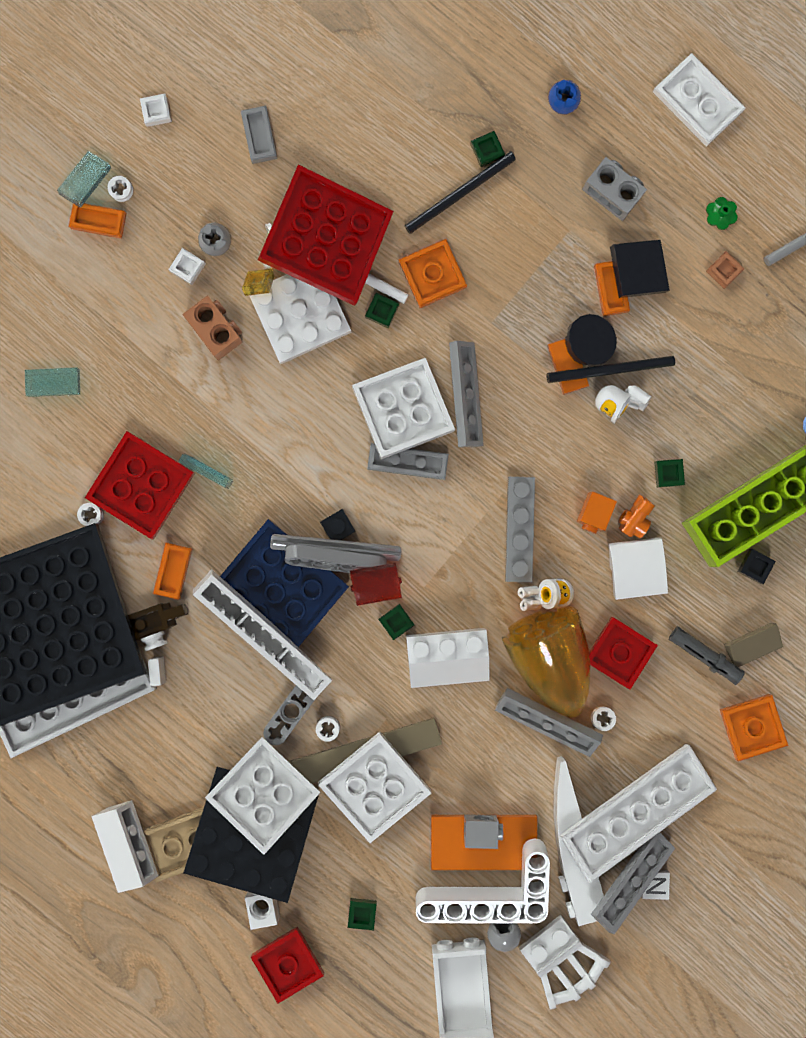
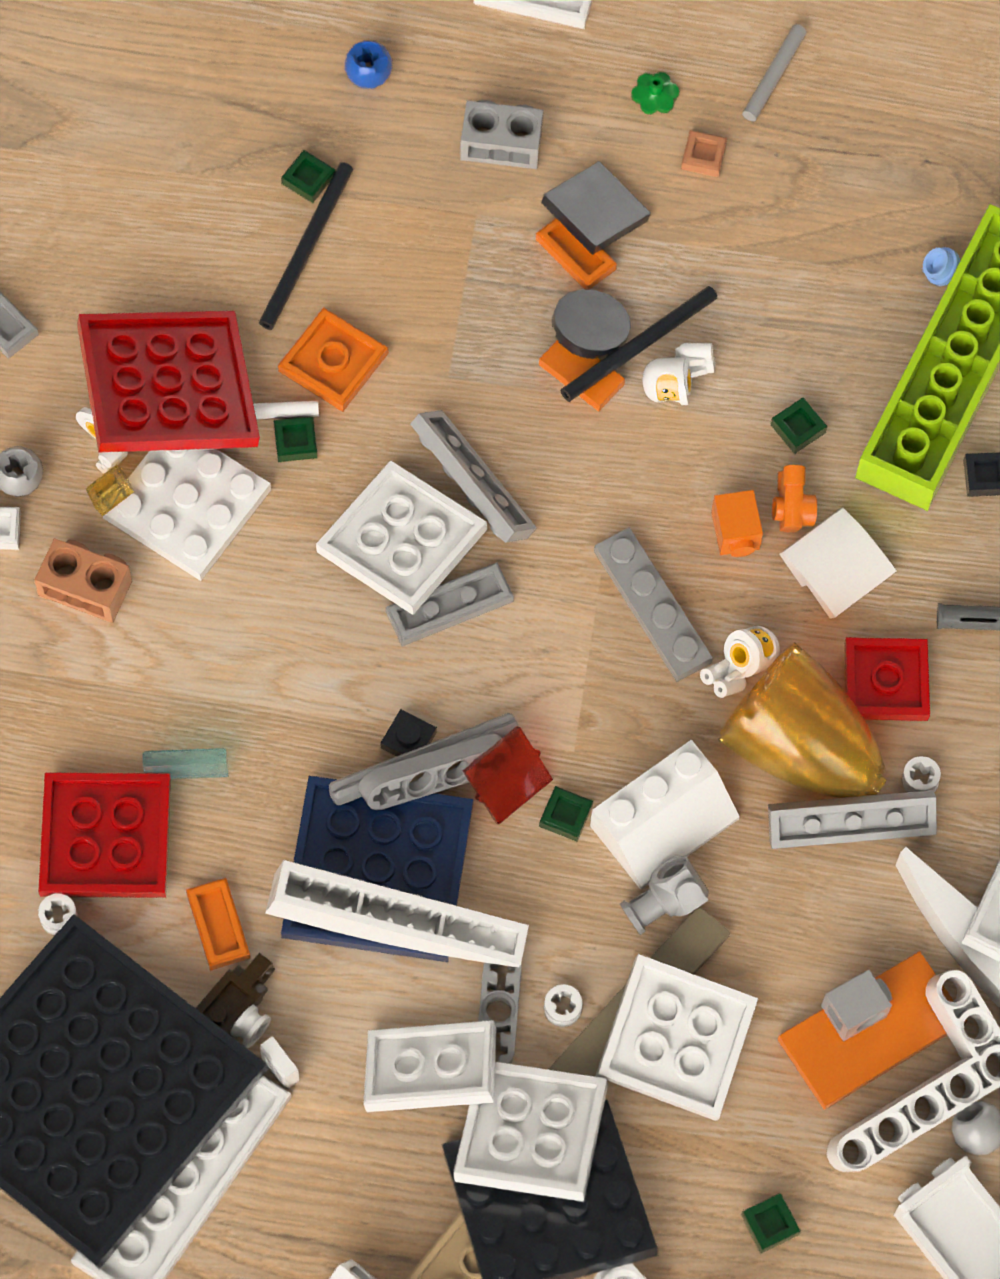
camera: 30 degrees left, 20 degrees down
(233, 724) = (430, 1066): none -> white tile
(424, 704) = (673, 891): none -> light grey connector

